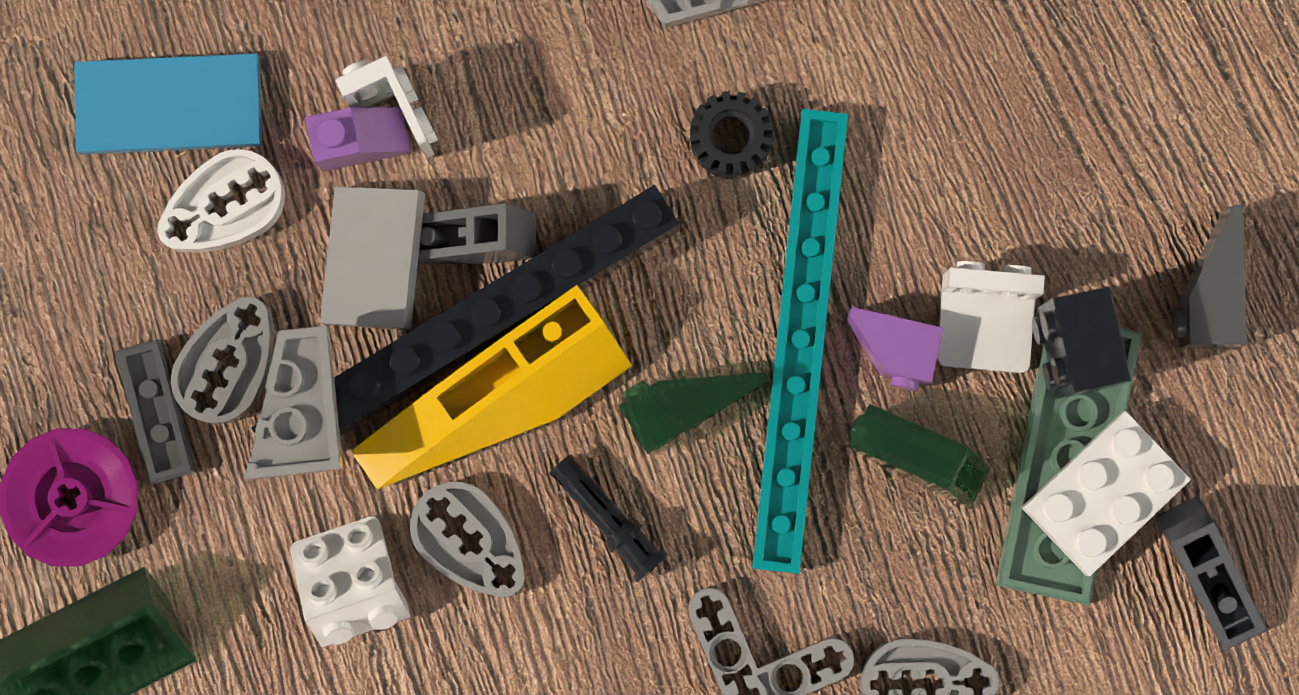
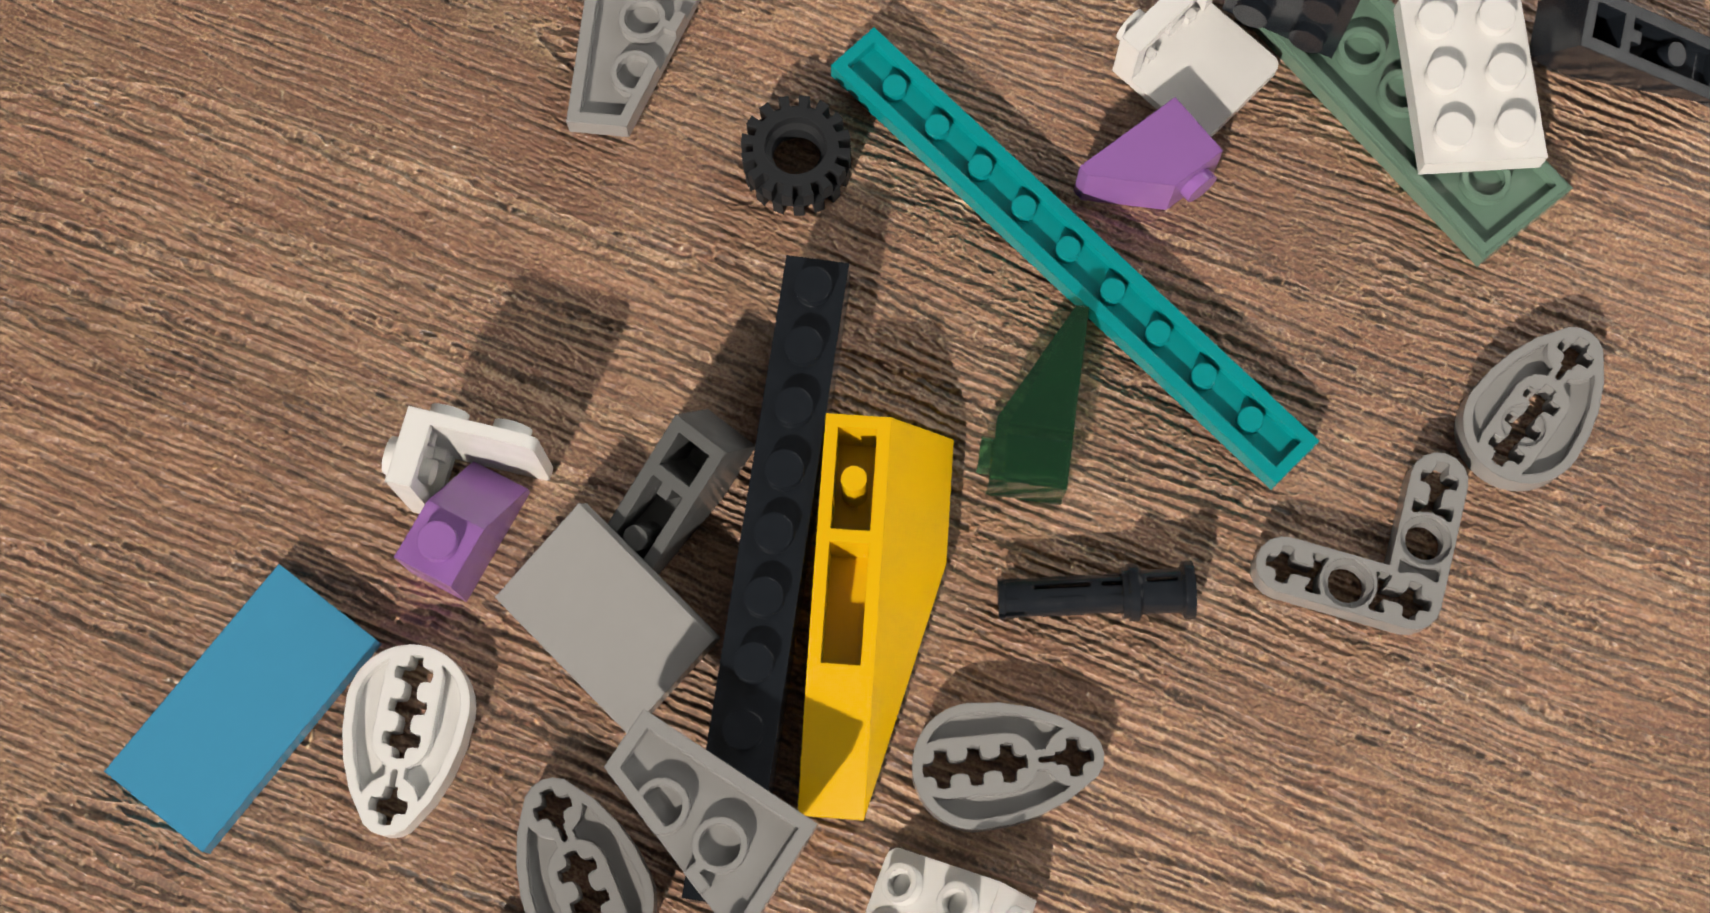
camera: 50 degrees left, 10 degrees down
(919, 455) = (1284, 225): clear green slope -> none

